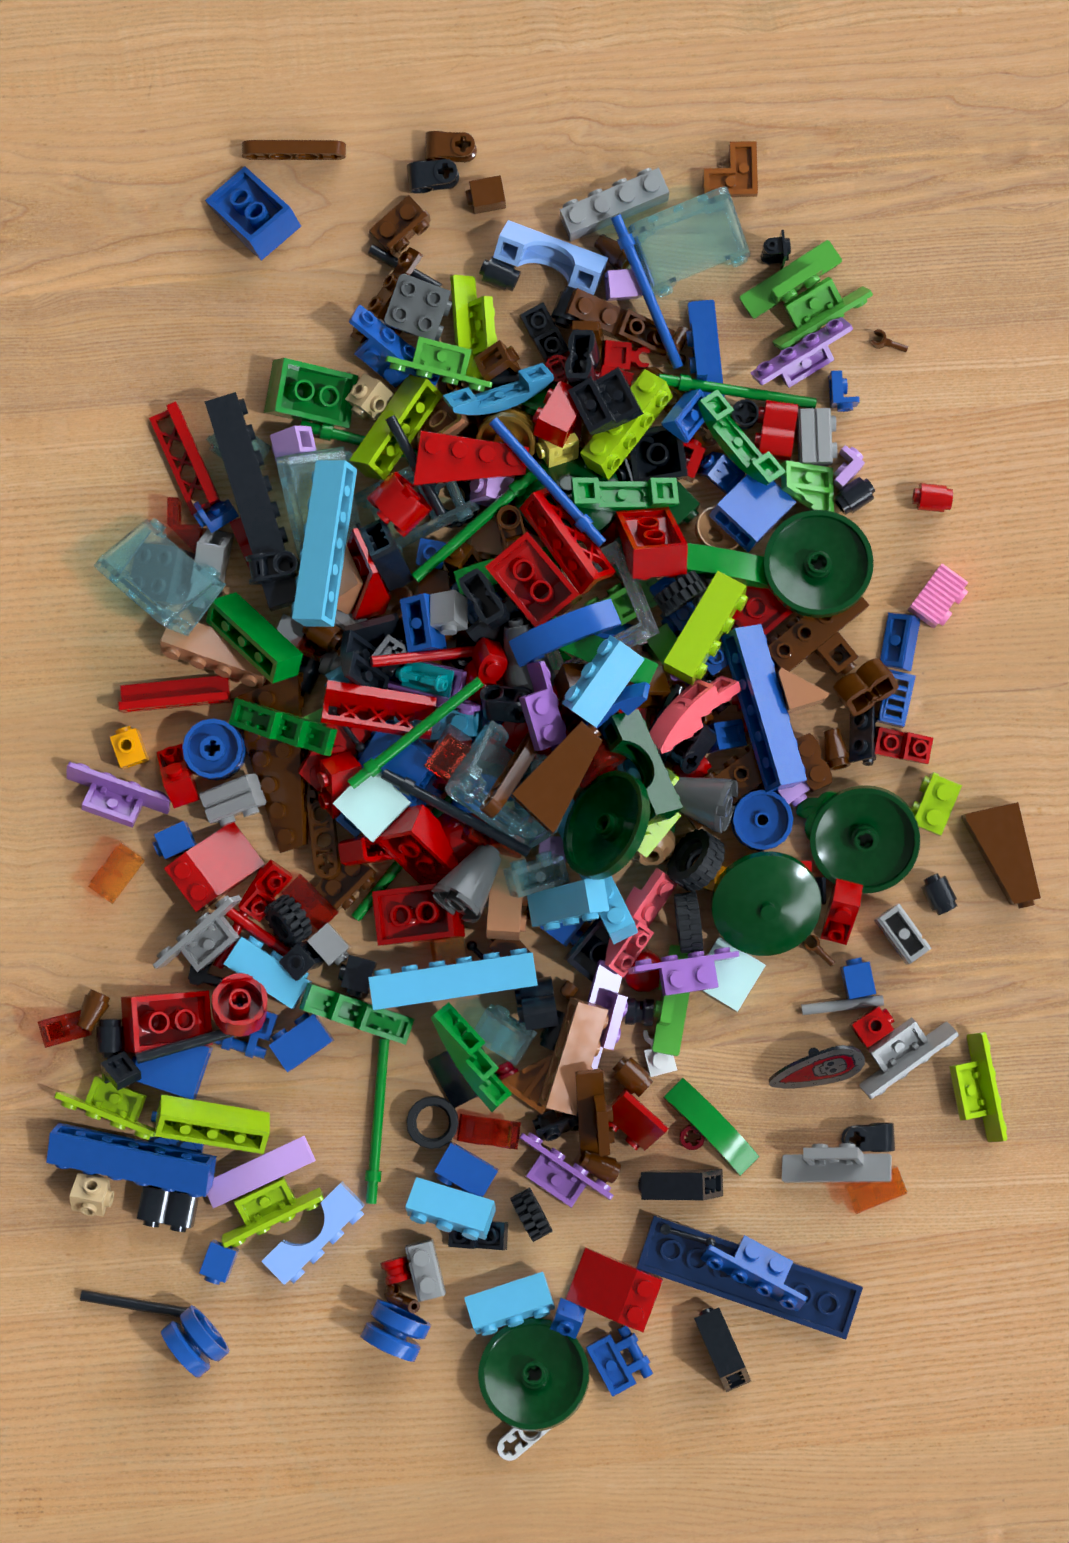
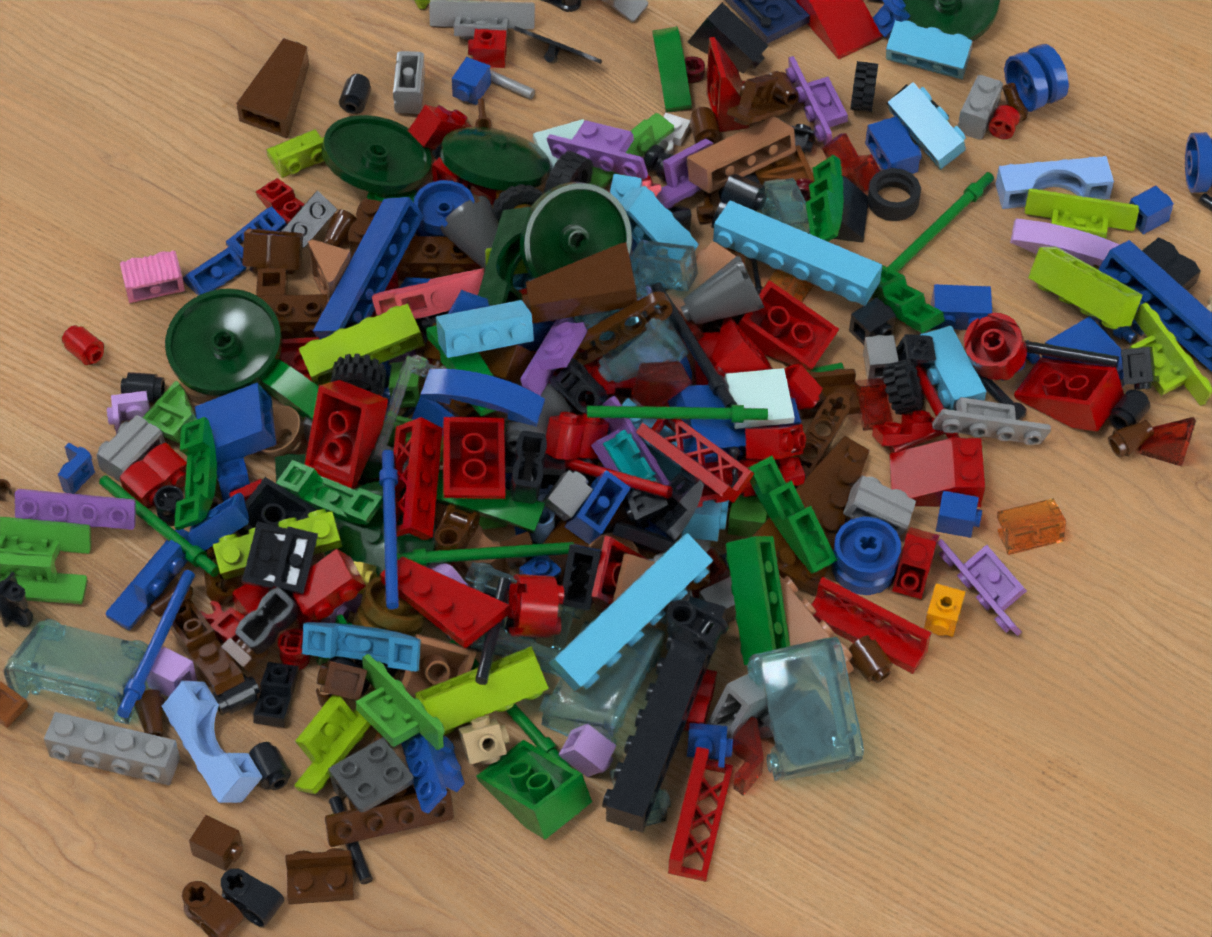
camera: 150 degrees left, 30 degrees down
(153, 666) = (870, 659): none -> reddish brown brick

